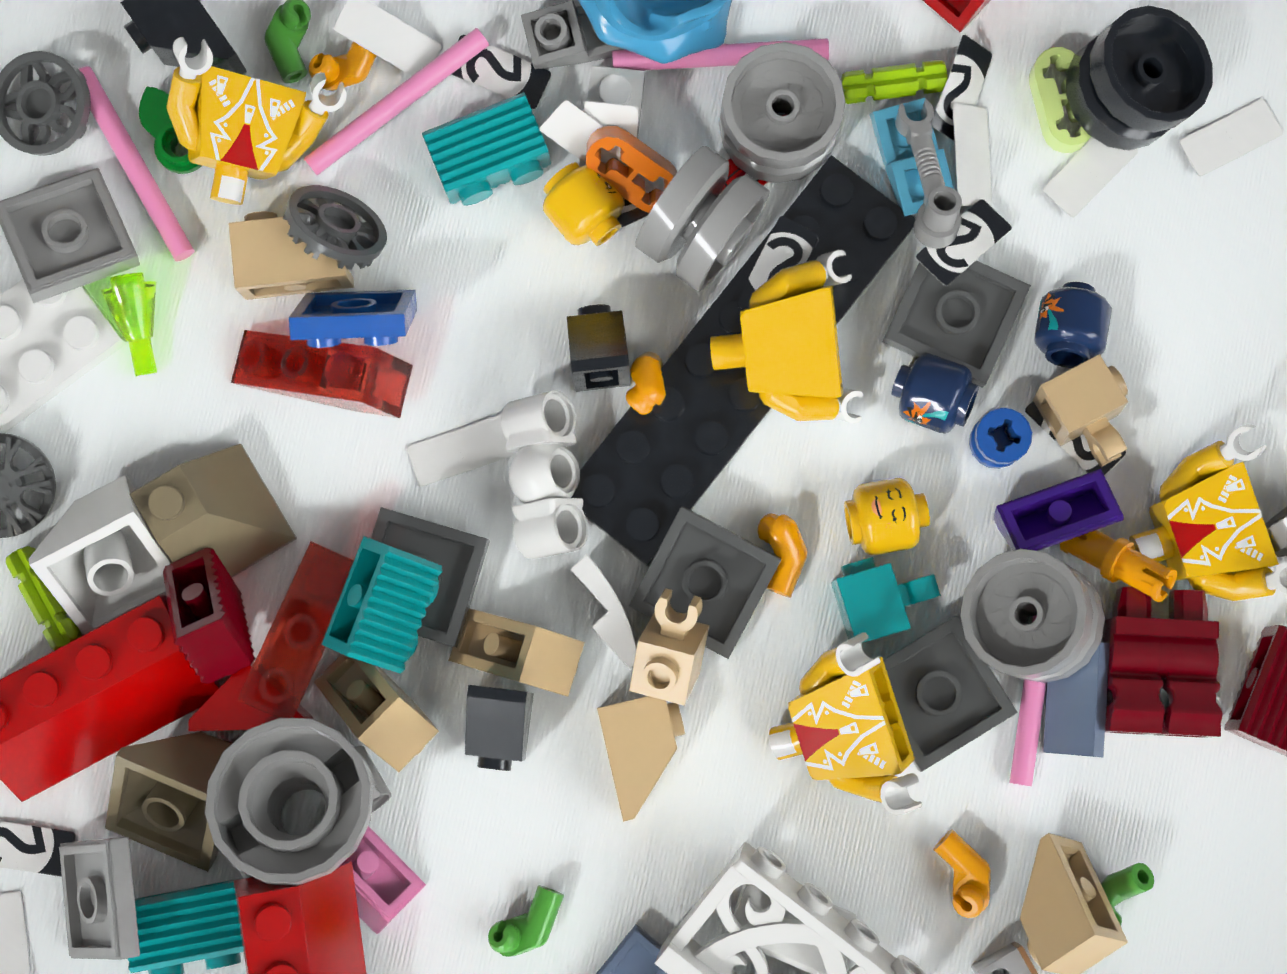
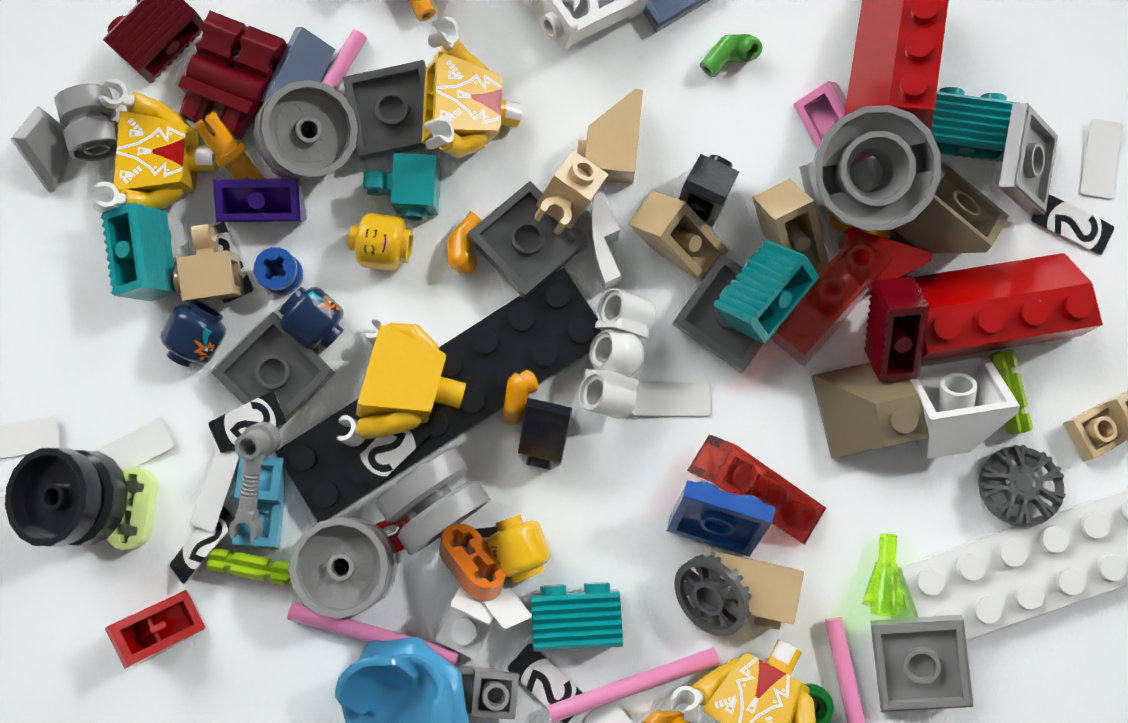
camera: 155 degrees left, 0 degrees up
(1178, 396) = (139, 252): none -> teal brick

